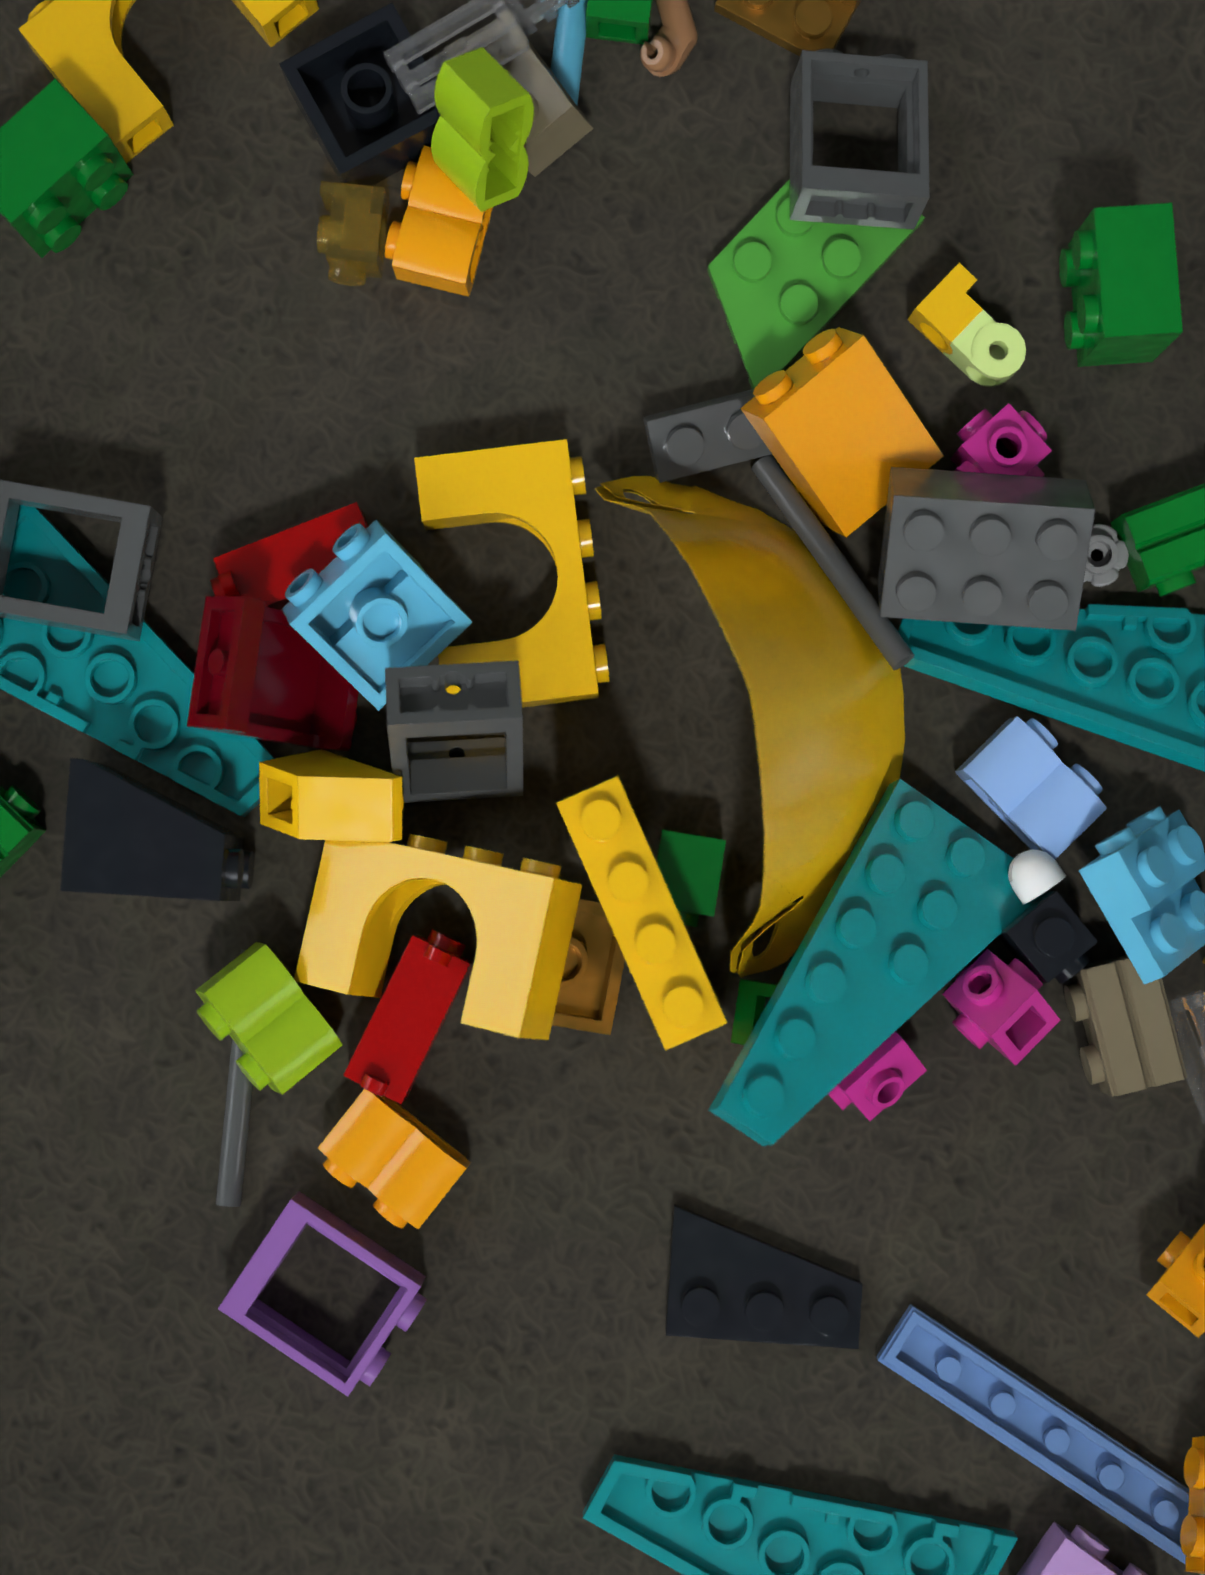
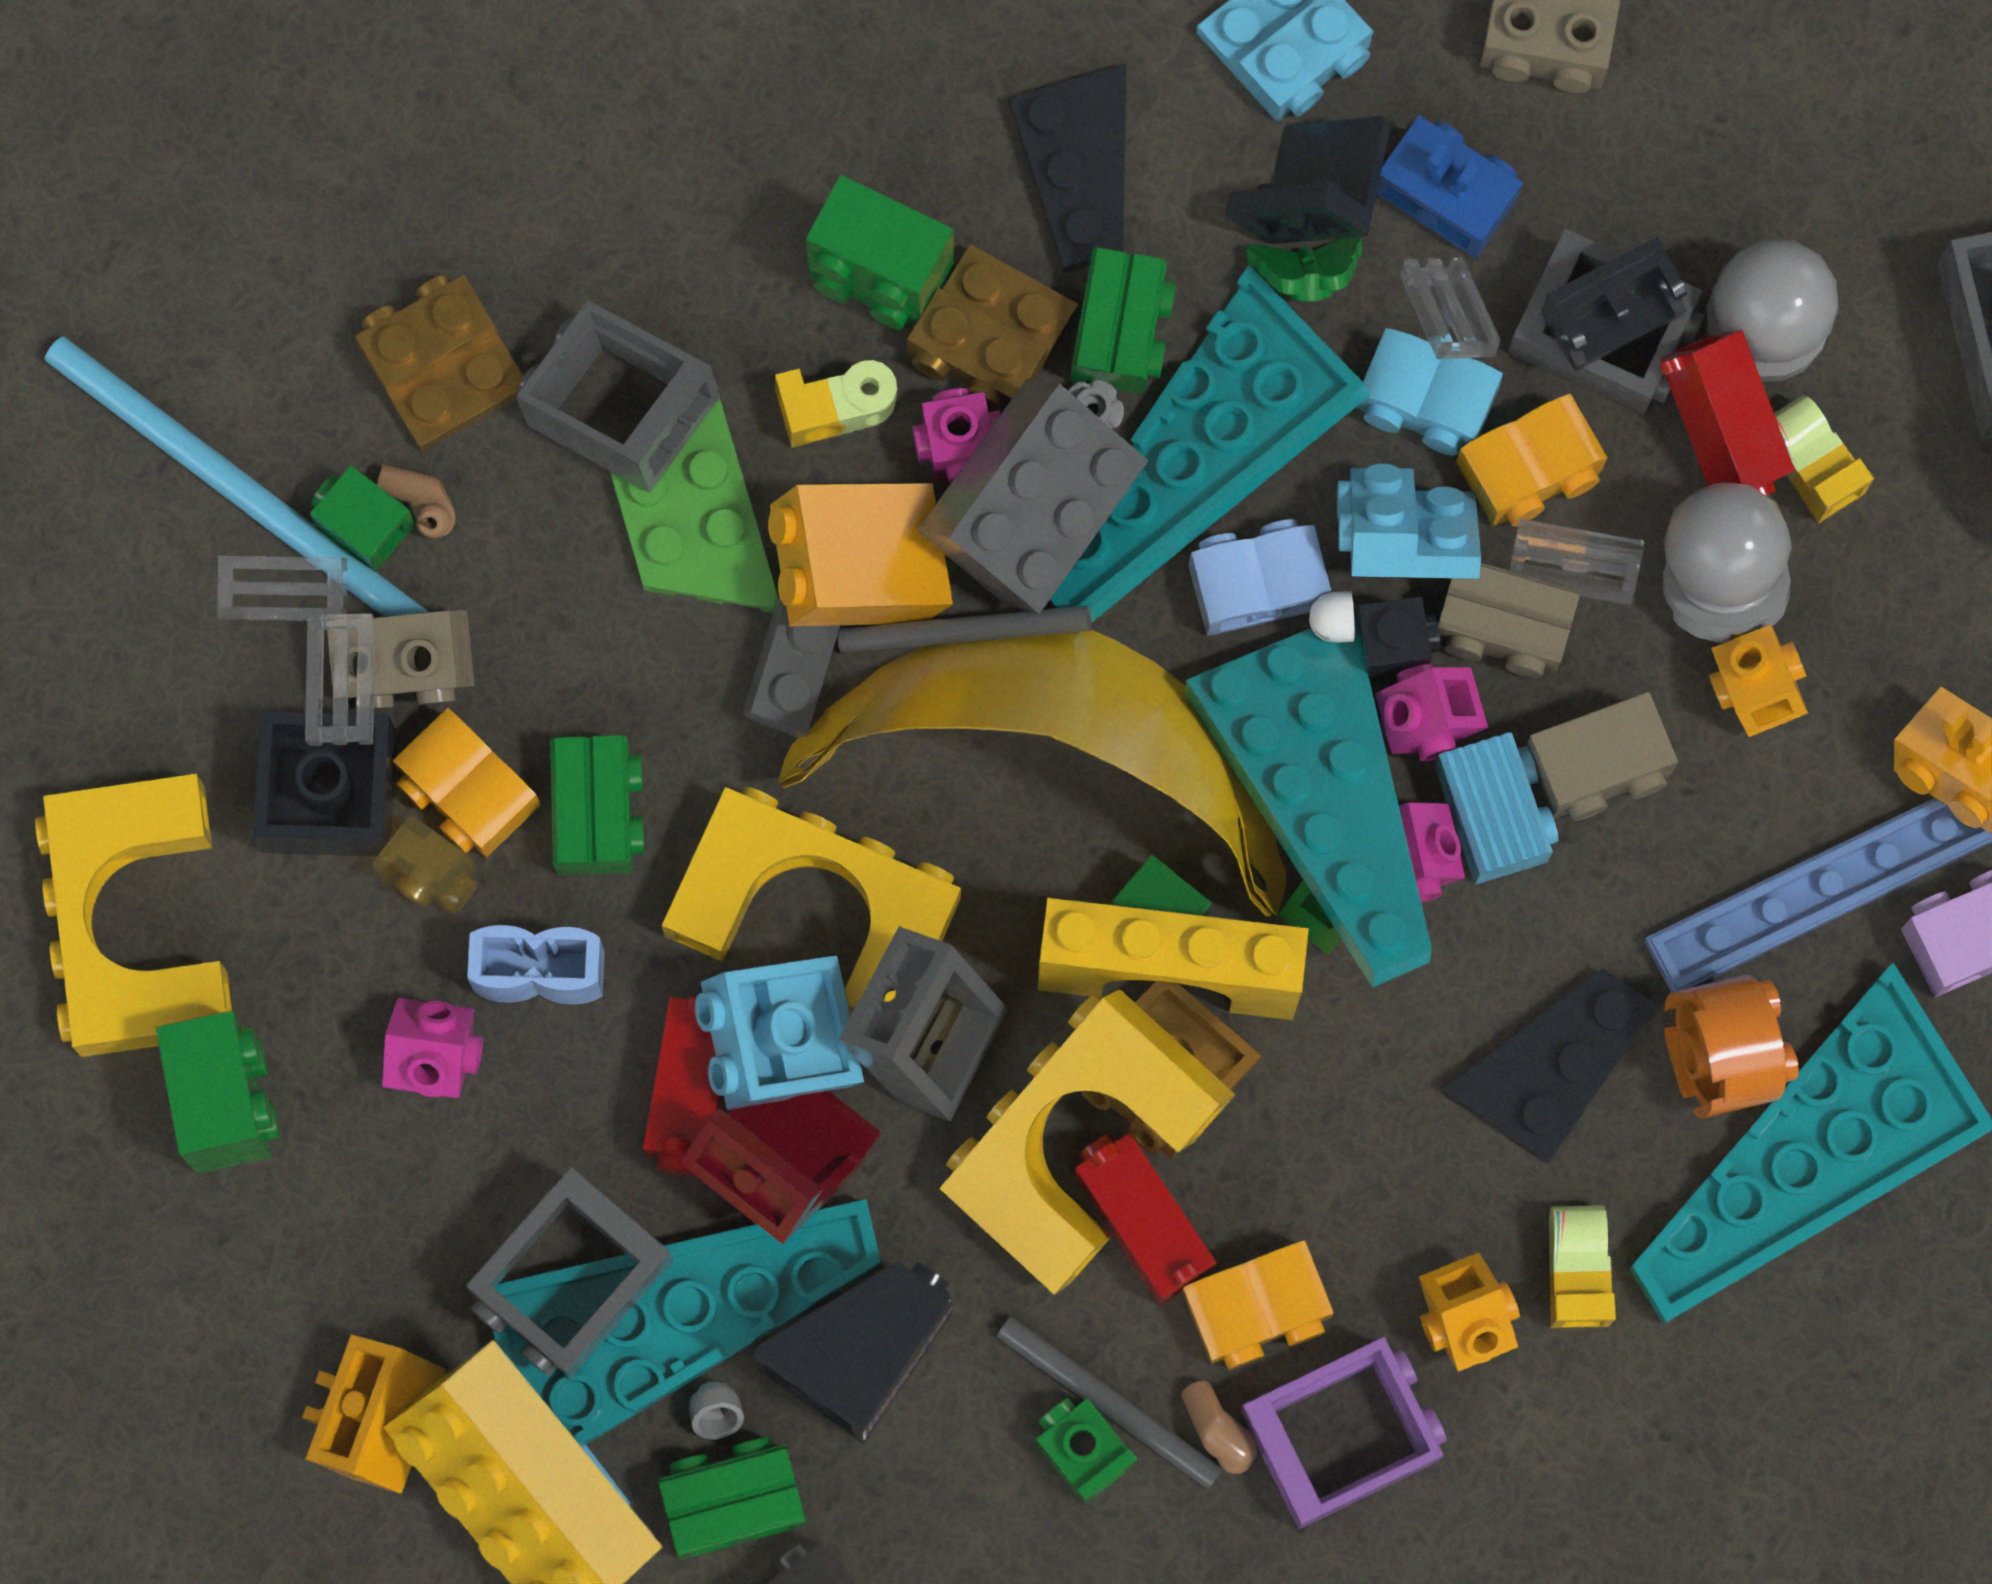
camera: 60 degrees left, 10 degrees down
(38, 751) = (707, 1411): none -> light grey hinge
(188, 1108) = (1088, 1473): none -> green brick
(197, 328) = (430, 1048): none -> dark pink brick
(265, 1185) = (1218, 1431): none -> medium nougat arm
(267, 1019) = (1073, 1338): lime brick -> none
(323, 379) = (517, 965): none -> light blue brick
(330, 798) = (915, 1166): yellow slope -> none
(481, 128) = (425, 695): lime brick -> none
(488, 1344) = (1471, 1325): none -> light orange brick
(491, 339) = (594, 805): none -> green brick
(586, 1415) = (1580, 1268): none -> leg
(856, 1440) = (1729, 1045): none -> orange brick
(950, 1111) = (1495, 807): none -> medium azure brick
(1049, 1179) = (1602, 758): none -> dark tan brick
(1115, 423) = (989, 328): none -> pearl gold plate

